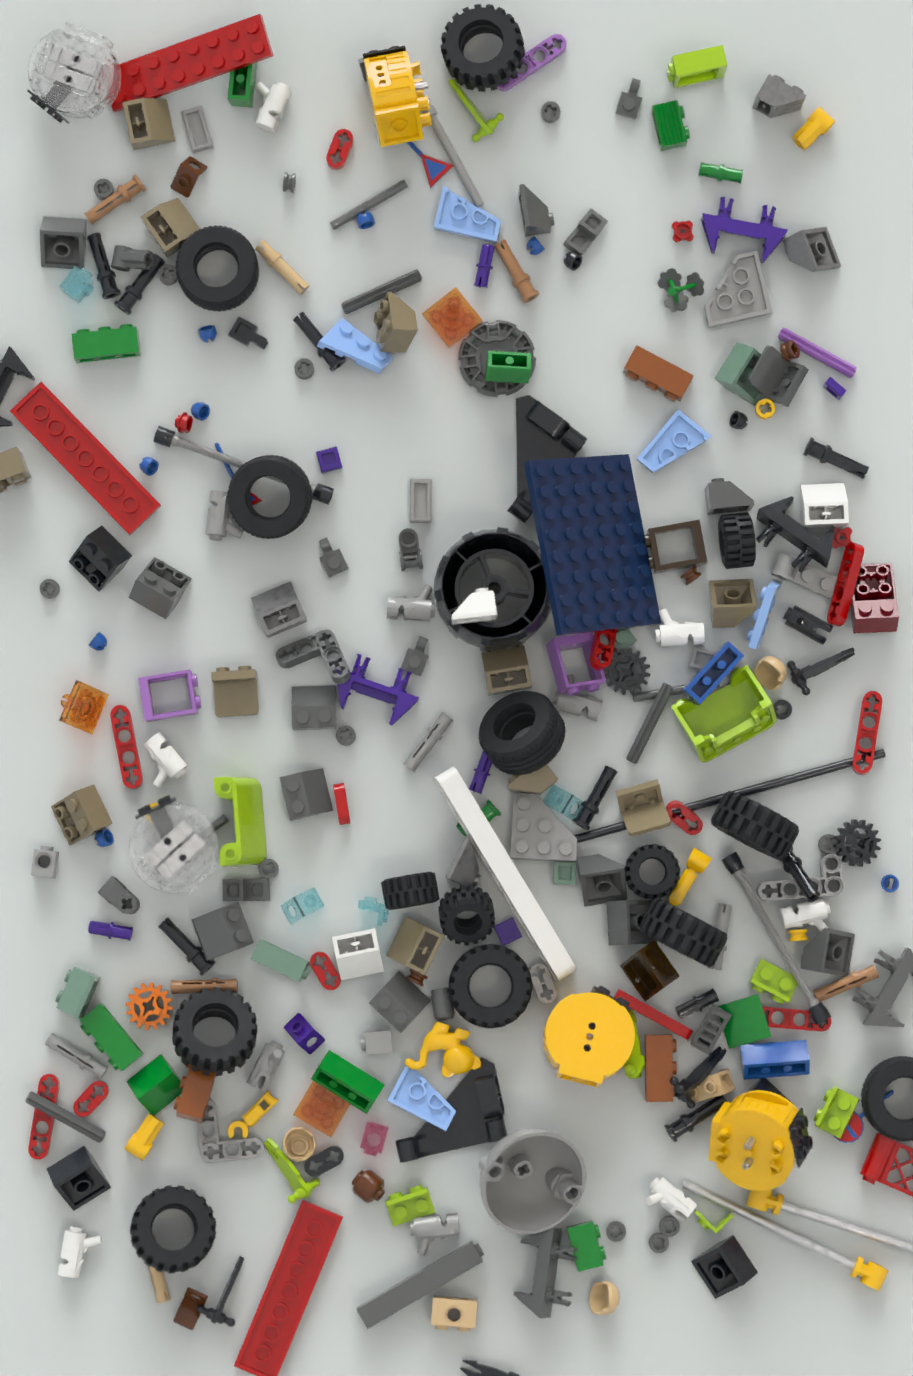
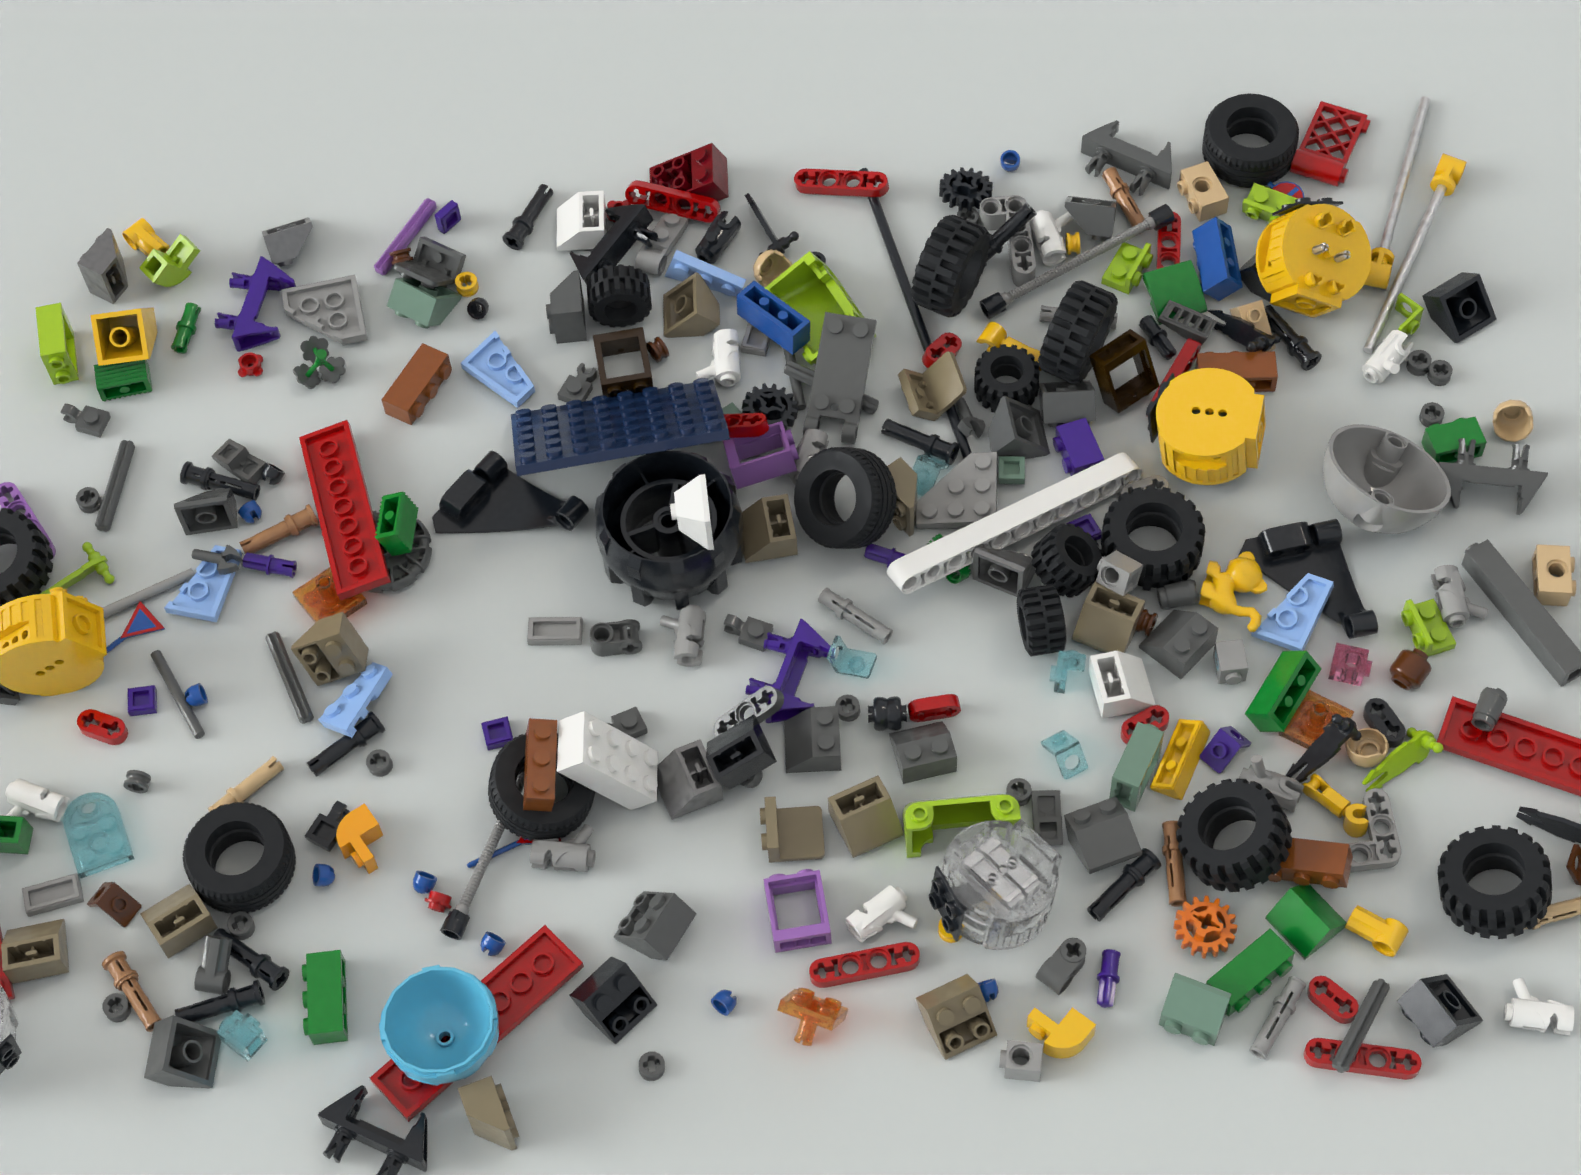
camera: 85 degrees left, 25 degrees down
(52, 414) = (435, 1006): none -> medium azure rock
(61, 896) = (1061, 1039): none -> yellow brick
(237, 353) = (355, 834): none -> light orange brick
(244, 748) = (865, 816): none -> dark tan slope
(245, 156) = (97, 837): none -> clear light blue plate
(270, 494) = (540, 765): none -> dark orange brick
(281, 546) = (607, 760): none -> white brick
(295, 648) = (739, 753): none -> black slope
(295, 1110) = (1325, 746): none -> black piece
(296, 997) = (1180, 758): none -> yellow slope
(325, 1243) = (1489, 708): none -> dark grey piece
(336, 766) = (887, 713): none -> black piece
(363, 177) = (142, 700): none -> dark purple tile
(385, 739) = (851, 661): none -> clear light blue bracket
(447, 954) = (1127, 576): none -> light grey brick
(485, 224) = (220, 559): none -> dark grey bar
(530, 322) = (344, 510): none -> red plate
(562, 131) = (115, 485): none -> dark grey axle
(567, 208) = (208, 477): none -> black pin
(582, 930) = (1077, 446): none -> dark purple brick
(614, 840) = (969, 422): none -> dark grey bar
(653, 730) = (841, 372): none -> dark grey hinge
(654, 508) = (578, 387): none -> dark grey plate
(705, 122) = (124, 335): none -> yellow slope
(783, 153) = (170, 267): none -> lime brick
(865, 1052) = (1203, 191): none -> tan brick

